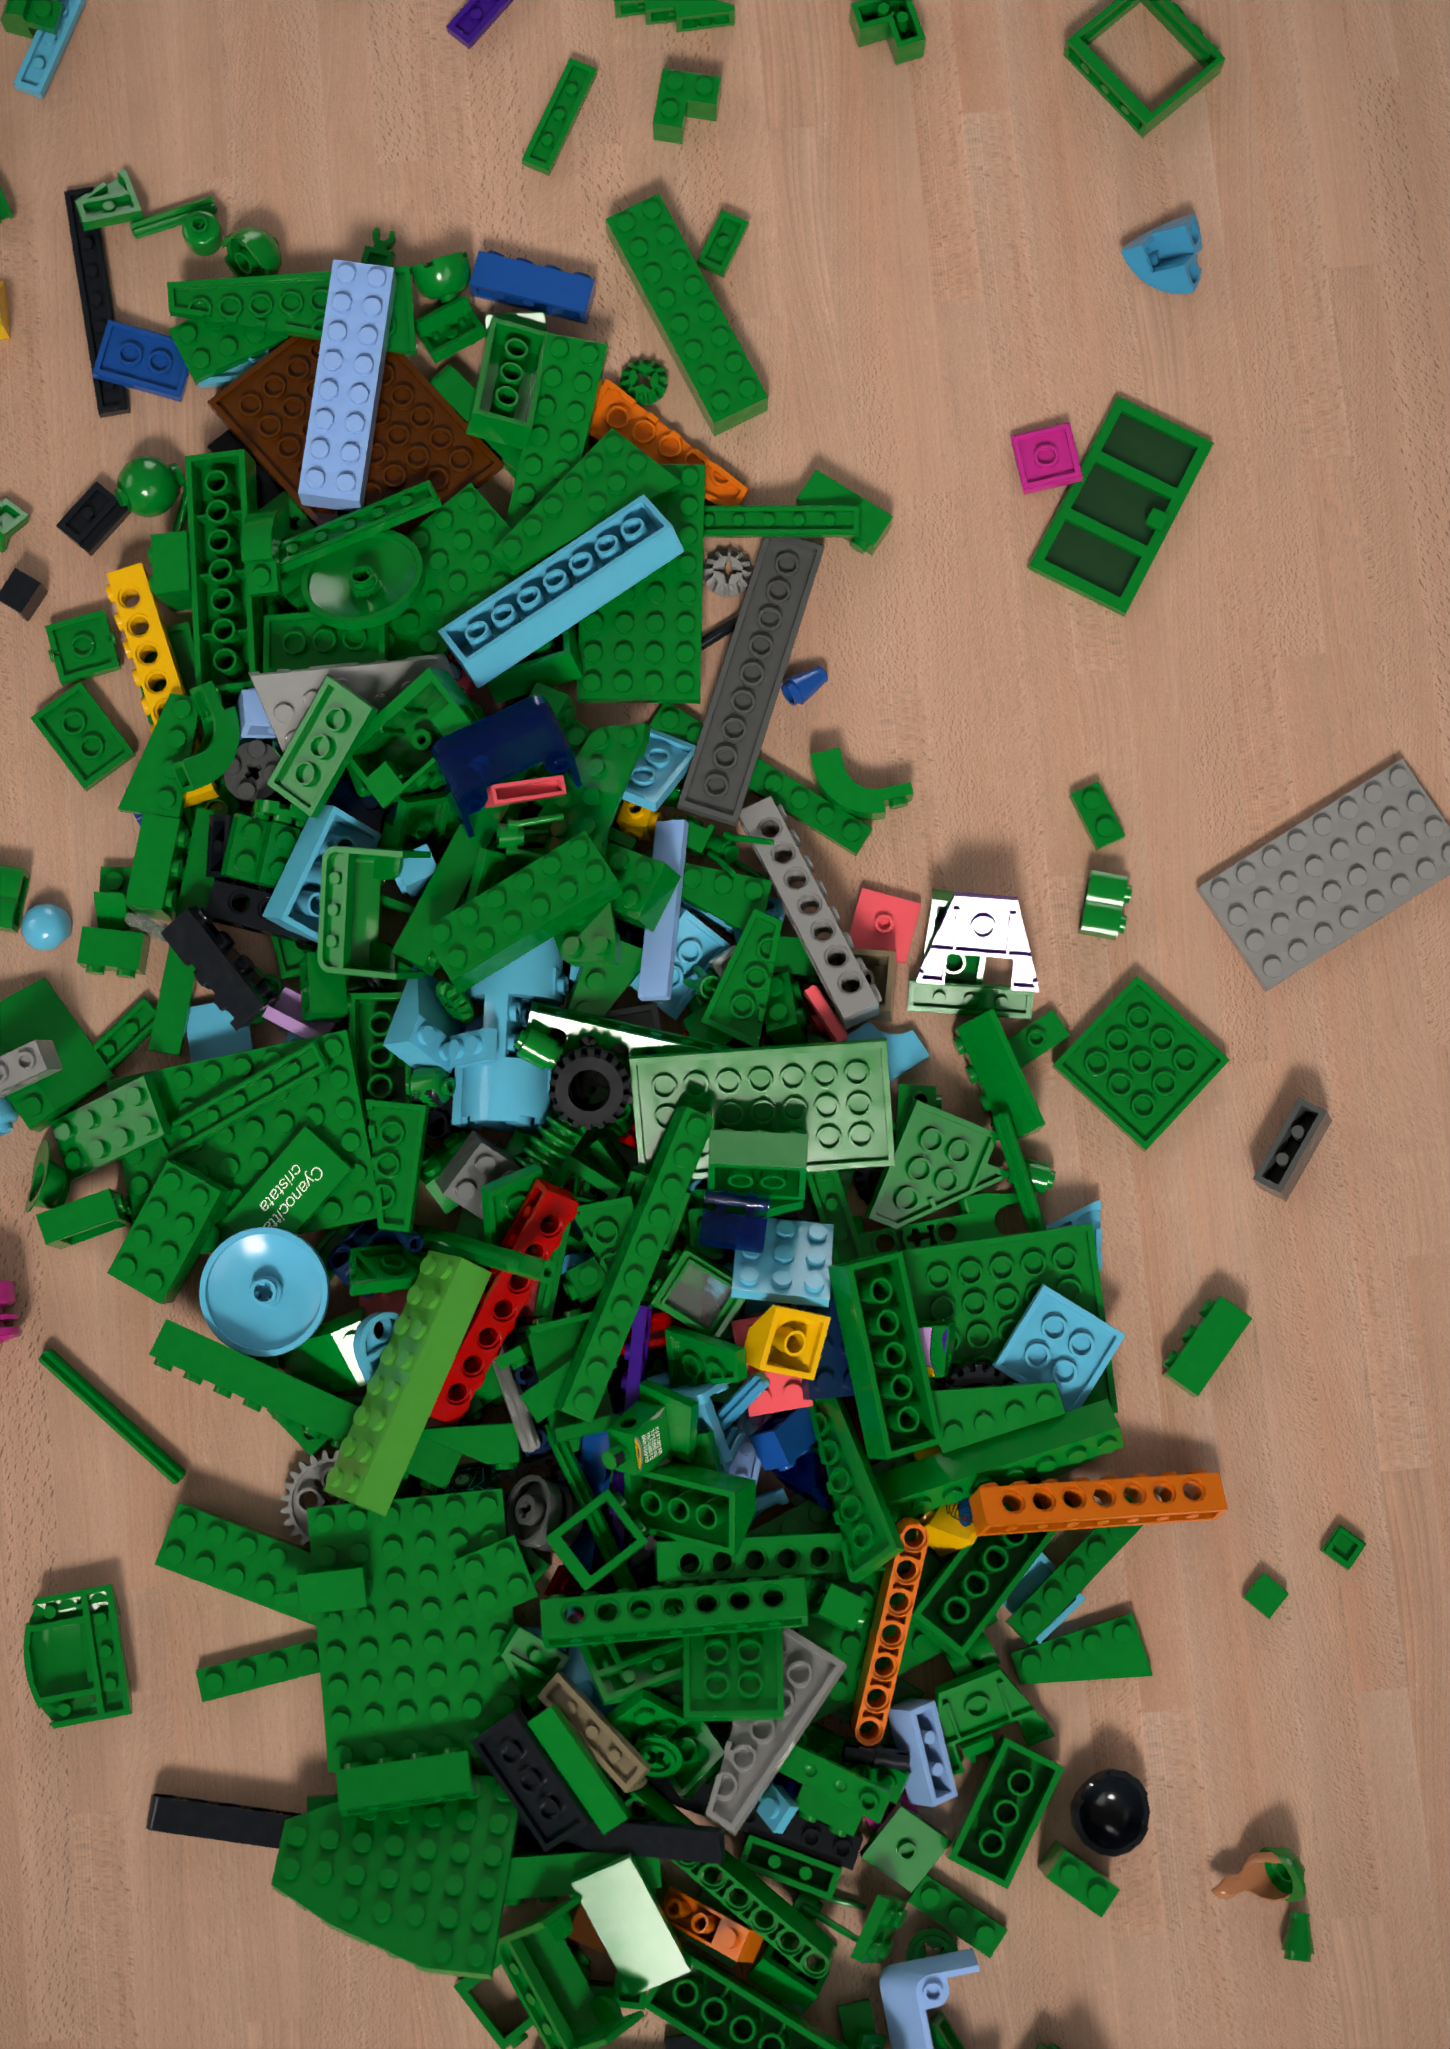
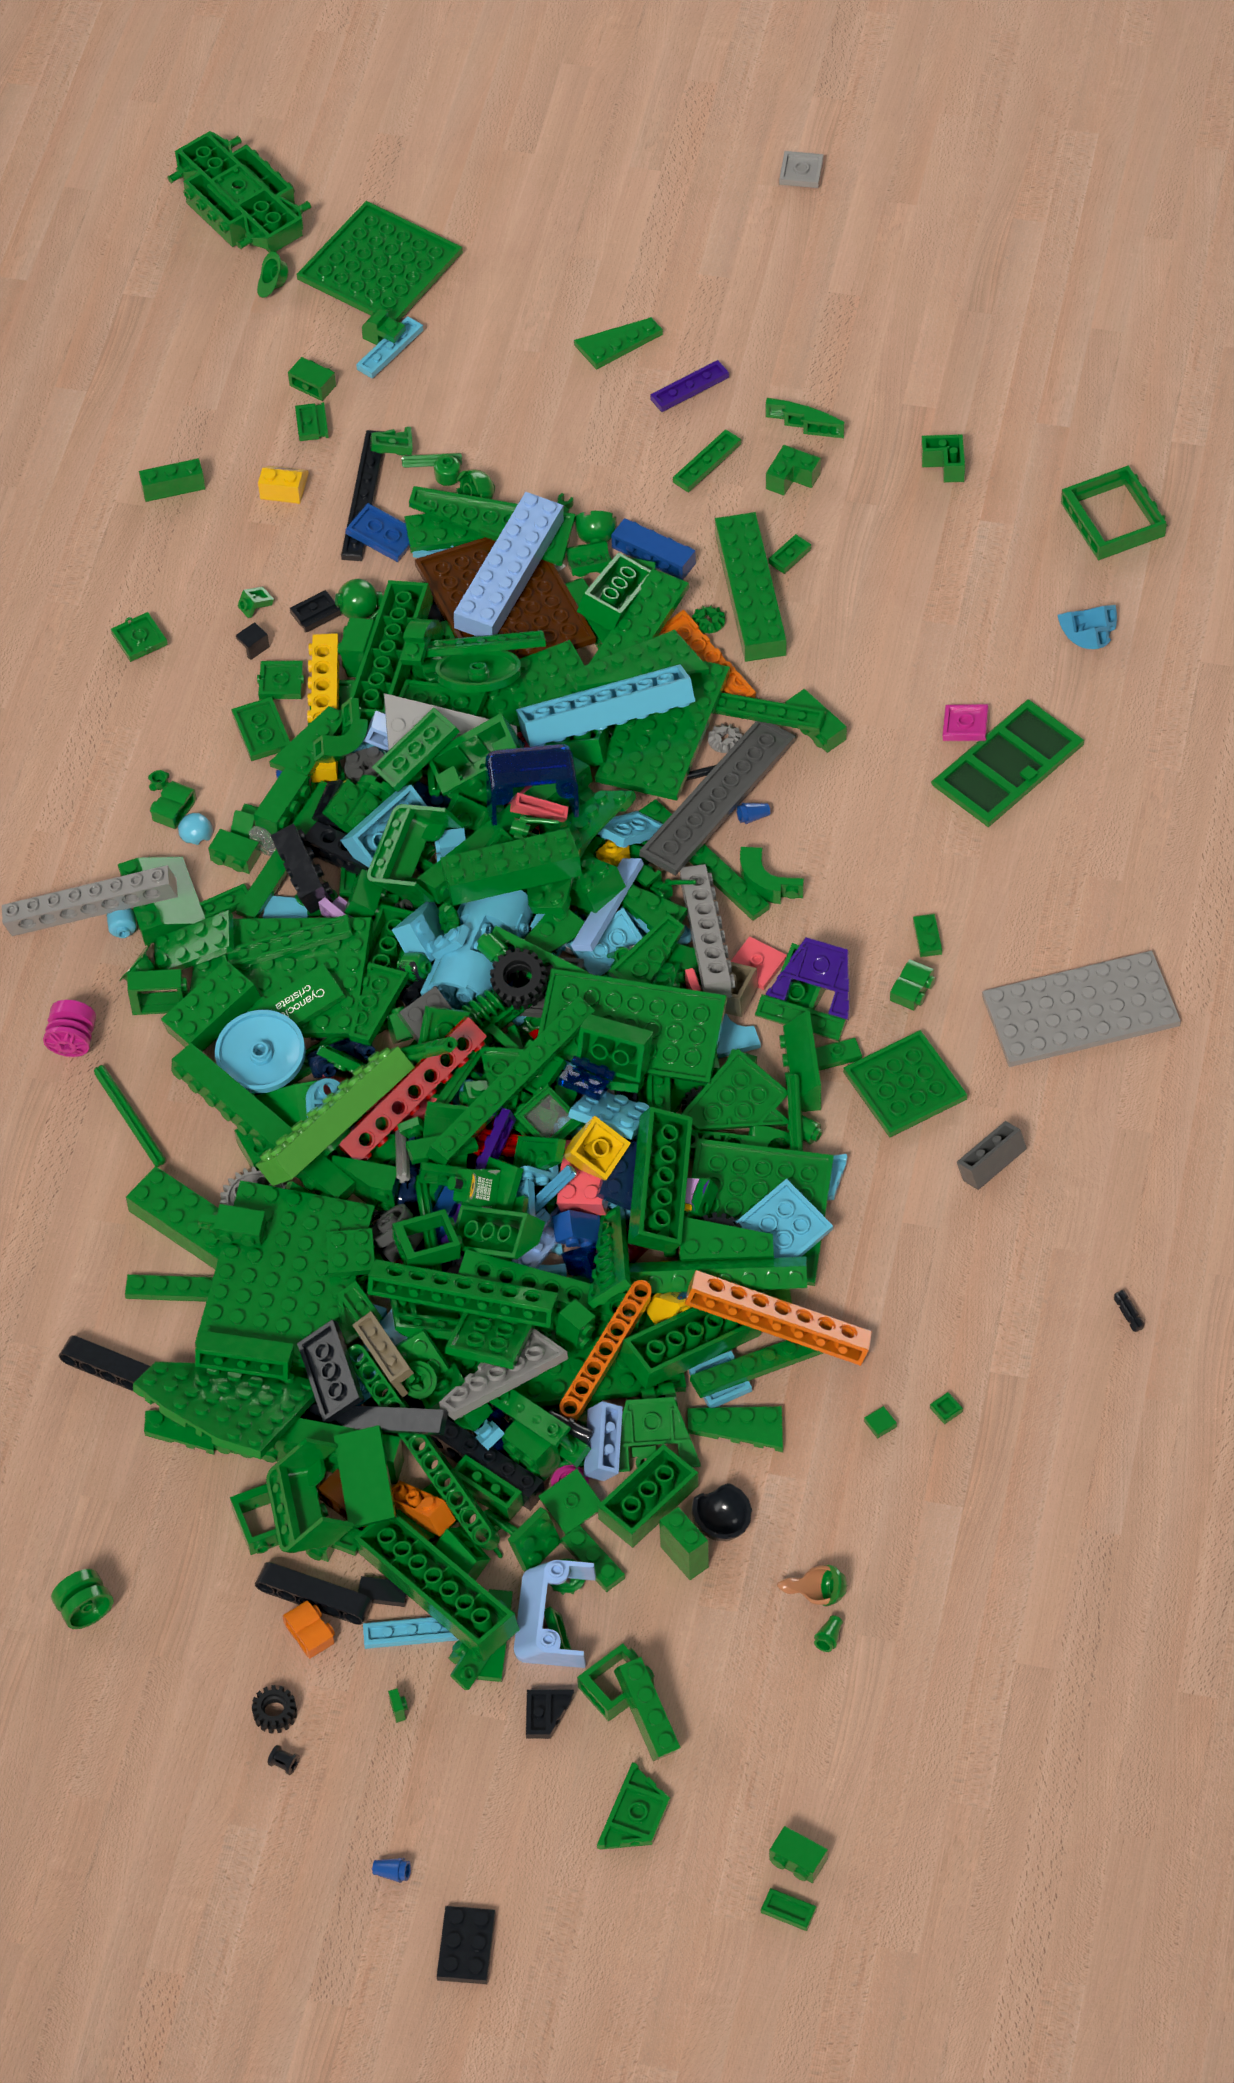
camera: 20 degrees right, 25 degrees down
(77, 1657) = (53, 1242): green slope -> none
(579, 1768) = (364, 1365): green tile -> none
(1205, 1345) = (890, 1259): green brick -> none

